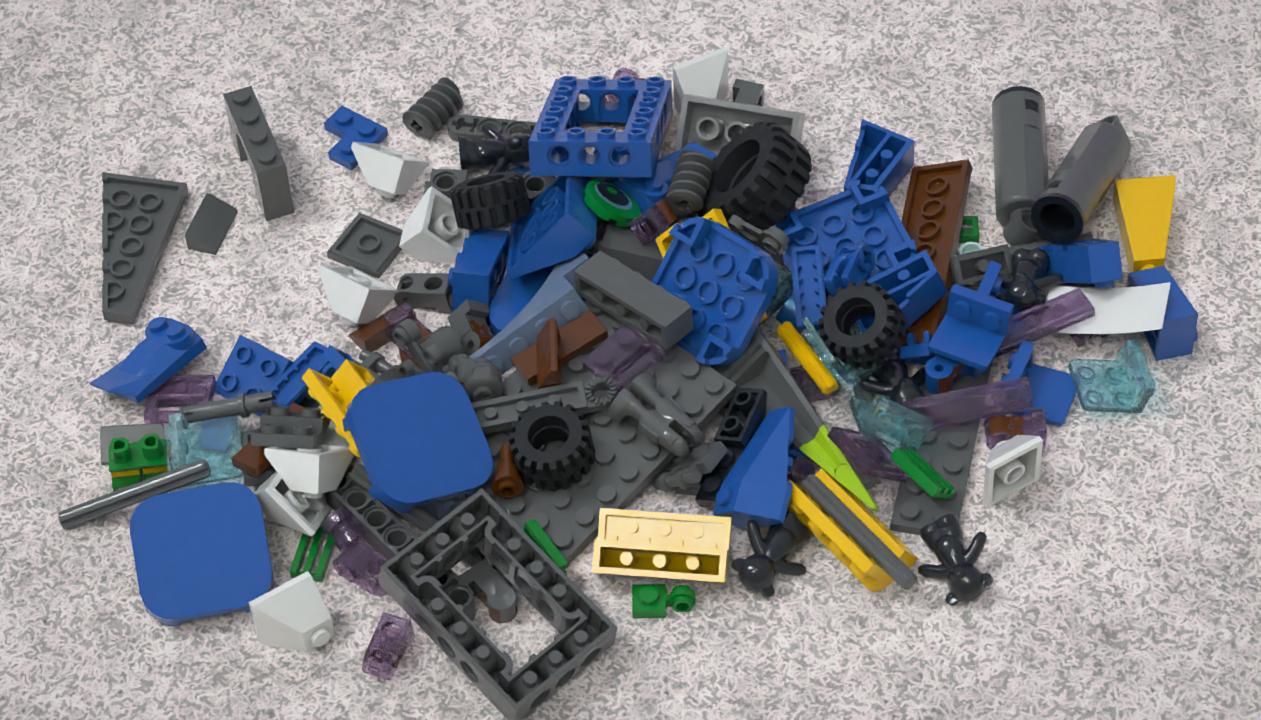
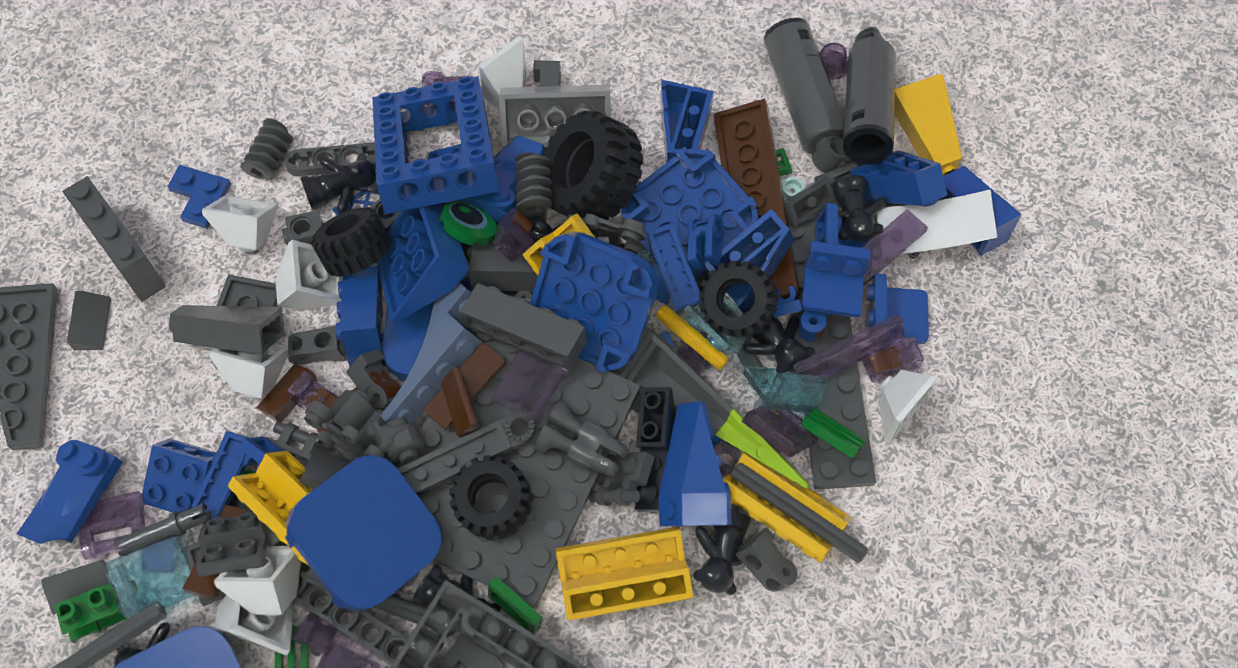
camera: 20 degrees left, 15 degrees up
(344, 251) = (228, 327): none -> dark grey slope
(507, 479) = (457, 539): reddish brown cone -> none
(651, 600) = (627, 627): green plate -> none
(812, 572) = (767, 562): none -> dark grey leg
(947, 543) = (889, 515): black piece -> none
(1061, 139) = (835, 60): none -> clear purple wheel
(1114, 384) = (960, 290): clear light blue bracket -> none

